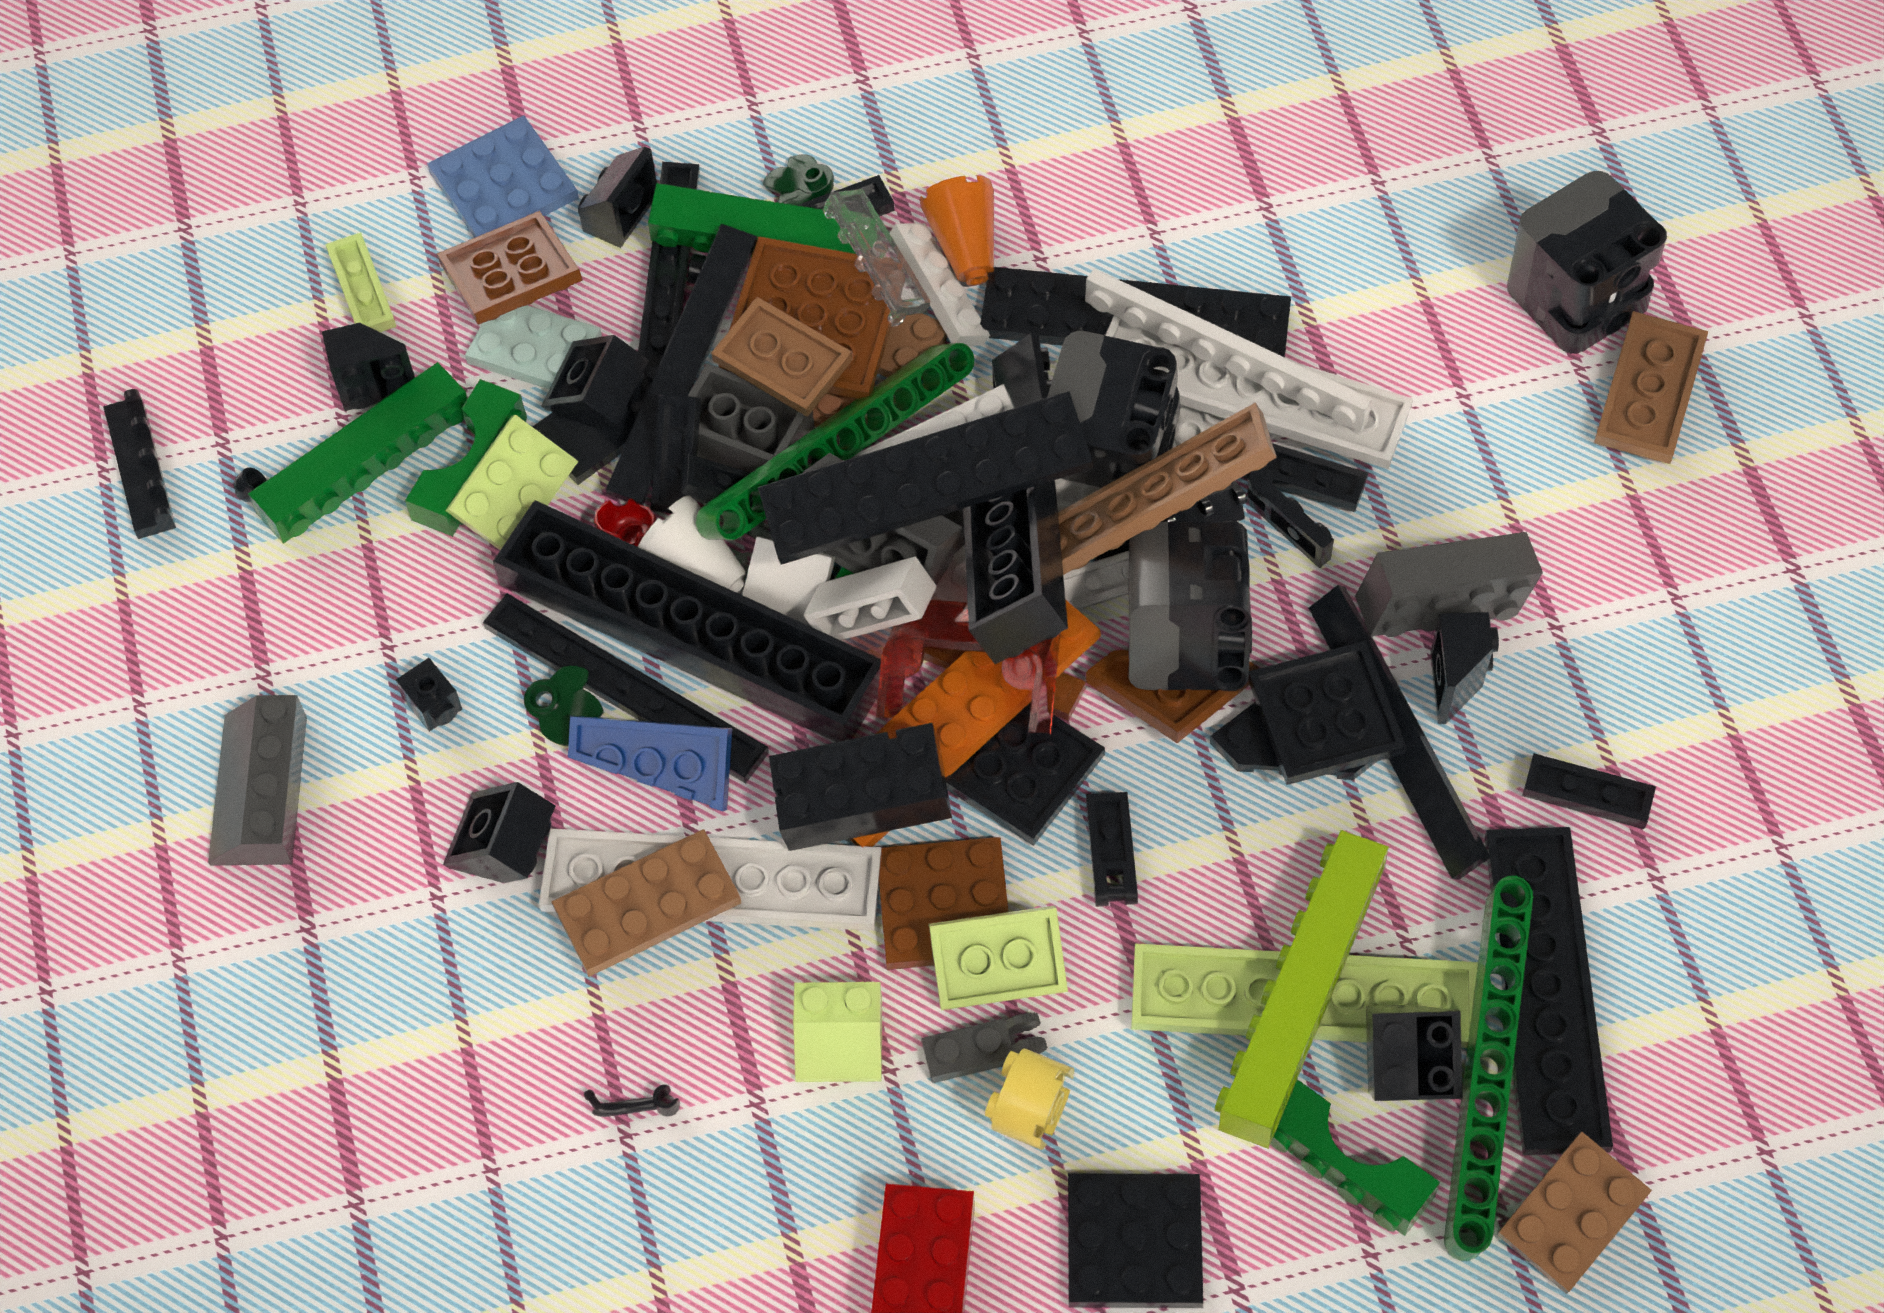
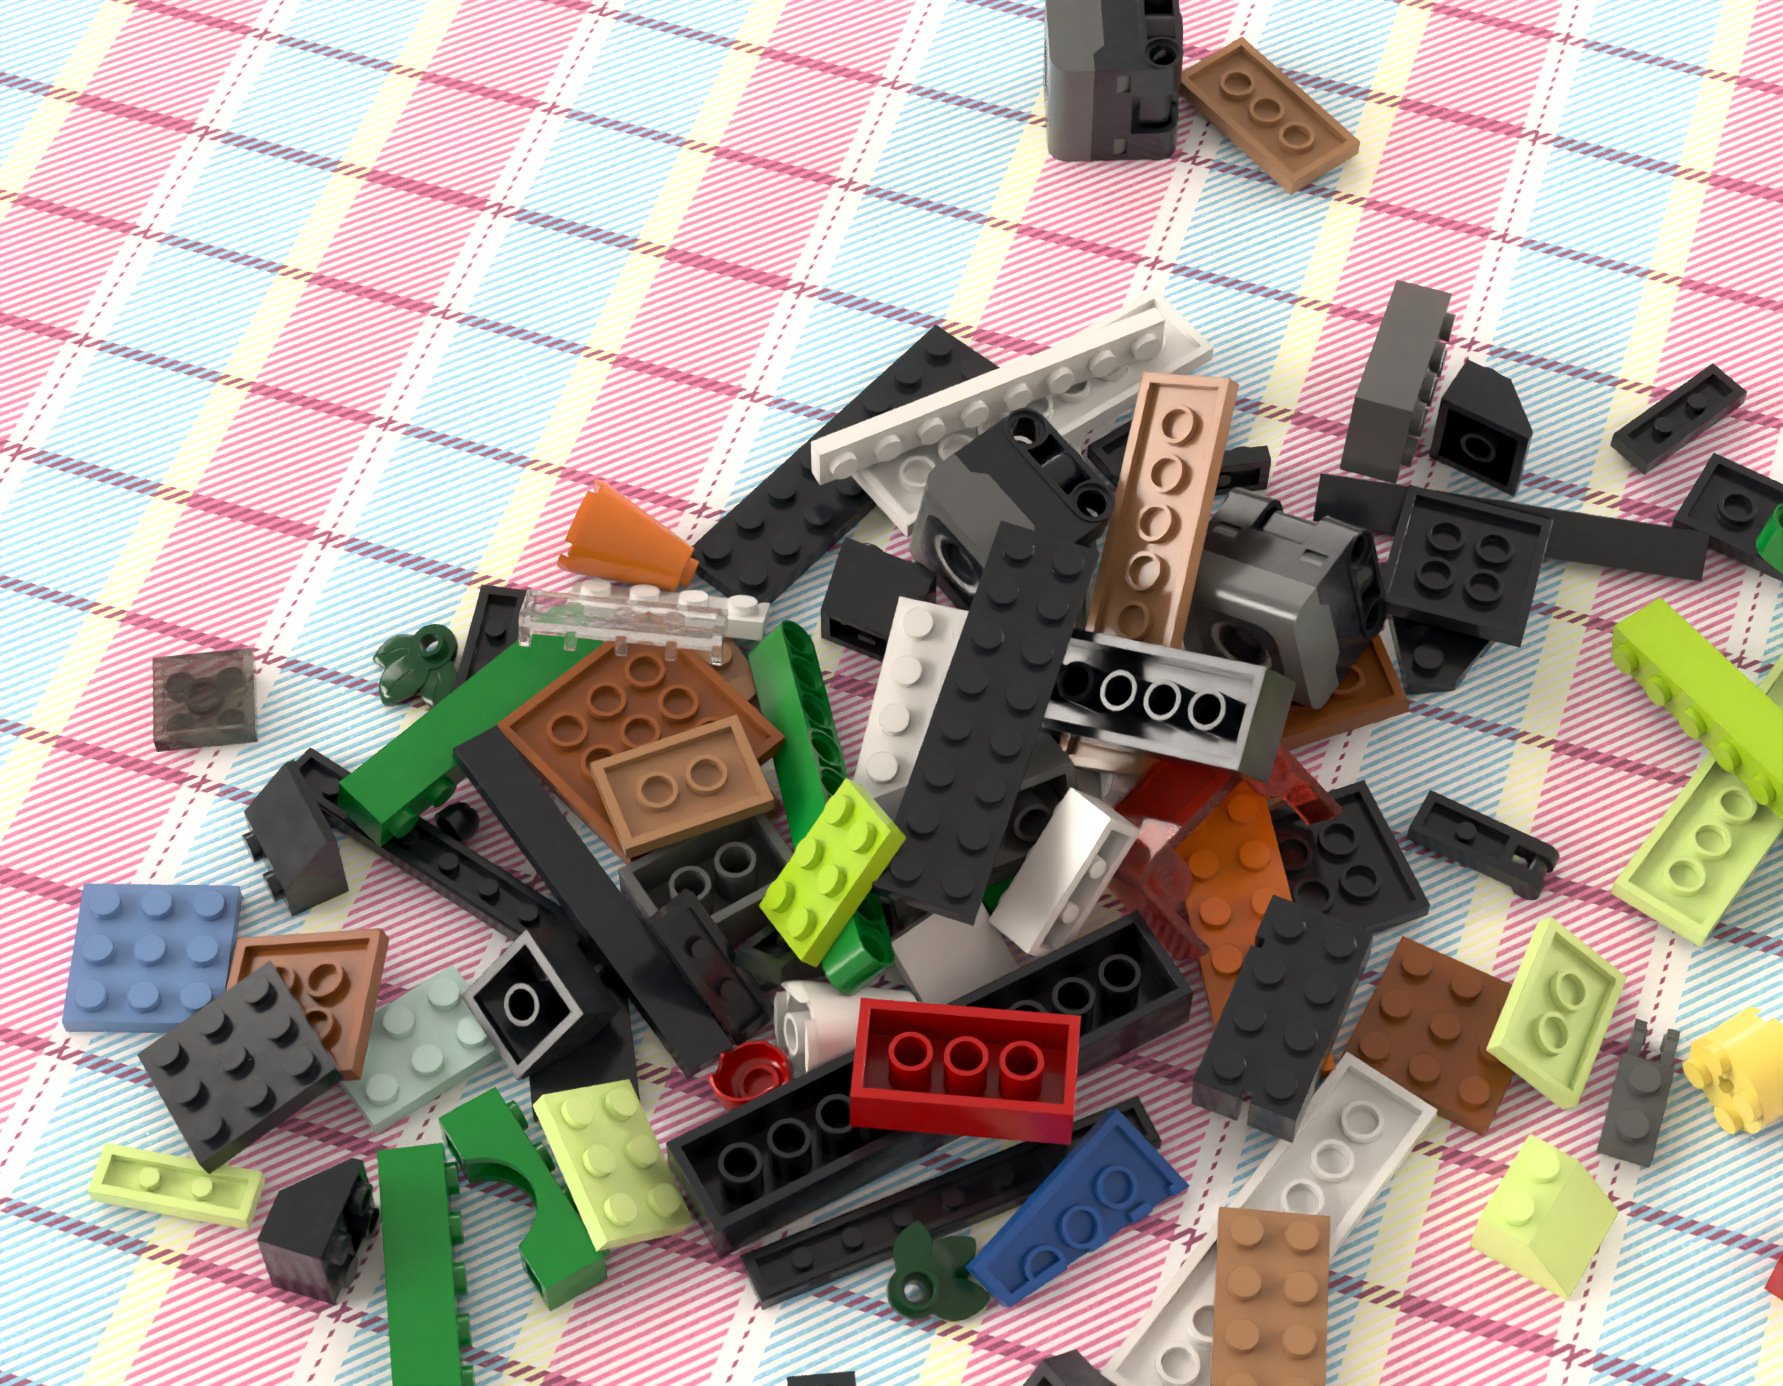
camera: 60 degrees left, 5 degrees down
(447, 262) = (240, 1067): none -> black plate
(677, 622) = (965, 1071): none -> red brick
(692, 91) = (204, 699): none -> clear smoke plate
(764, 465) = (831, 872): none -> lime plate

